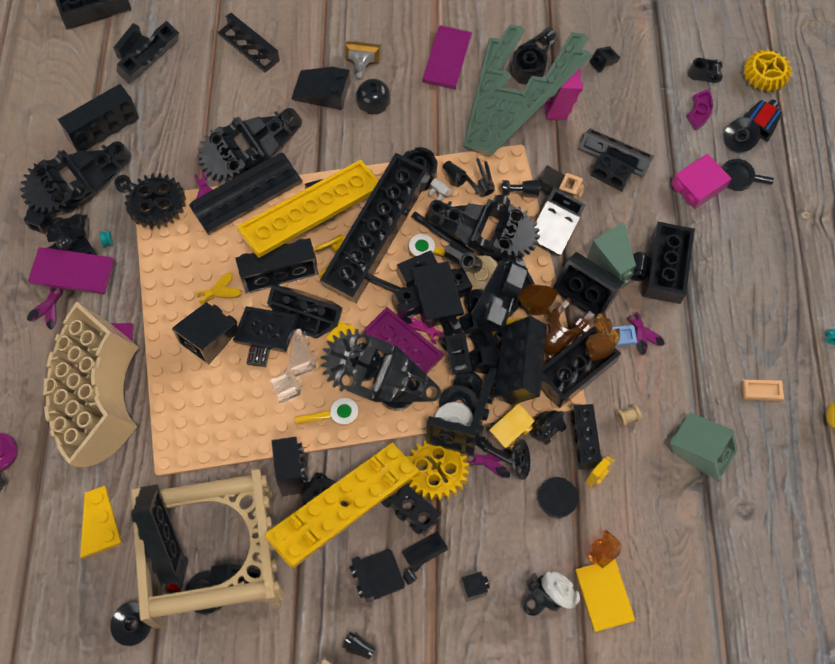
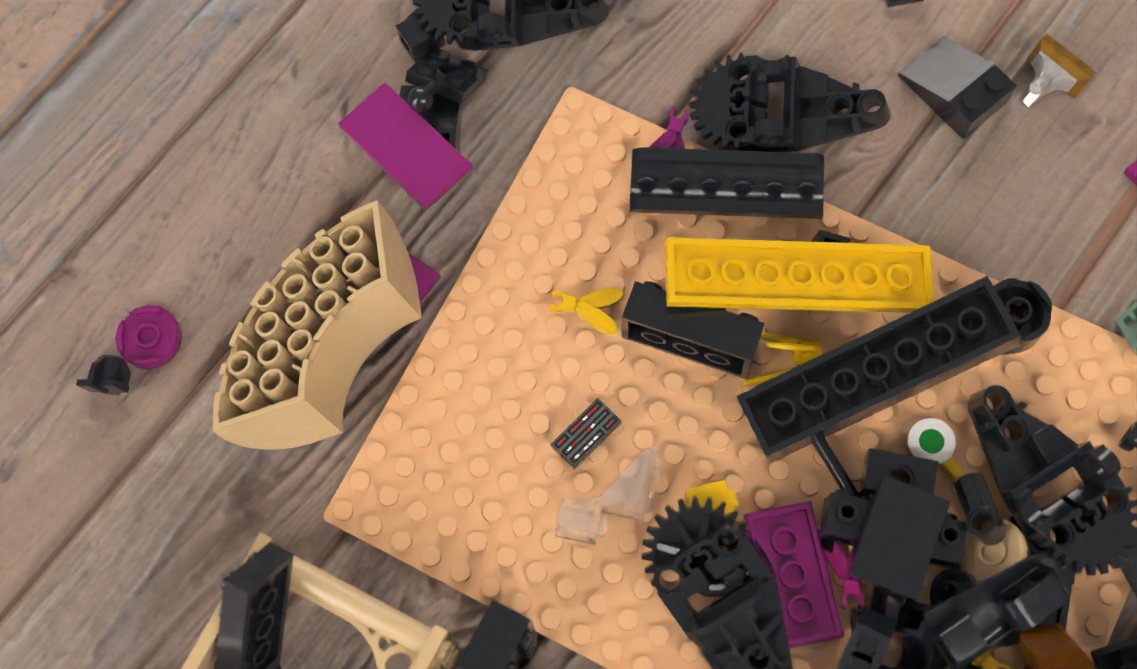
camera: 45 degrees right, 5 degrees up
(48, 308) = (346, 173): magenta piece -> none
(99, 524) = (206, 533): yellow wing -> none
(106, 238) = (488, 124): teal bush -> none
(120, 179) = (567, 45): black bush -> none
(155, 201) = (590, 112): black gear -> none
(205, 331) = (526, 359): black slope -> none
(266, 329) = (610, 415): black tile -> none
(315, 313) = (684, 425): black wedge -> none
(343, 412) = (633, 616): piece -> none
(373, 96) = (1026, 149): black cylinder -> none
(422, 220) = (961, 400): black bar -> none
(440, 187) = (1028, 370): white tile -> none
(455, 173) = (1067, 360): black cone -> none
(485, 184) = (1103, 411): black plant -> none

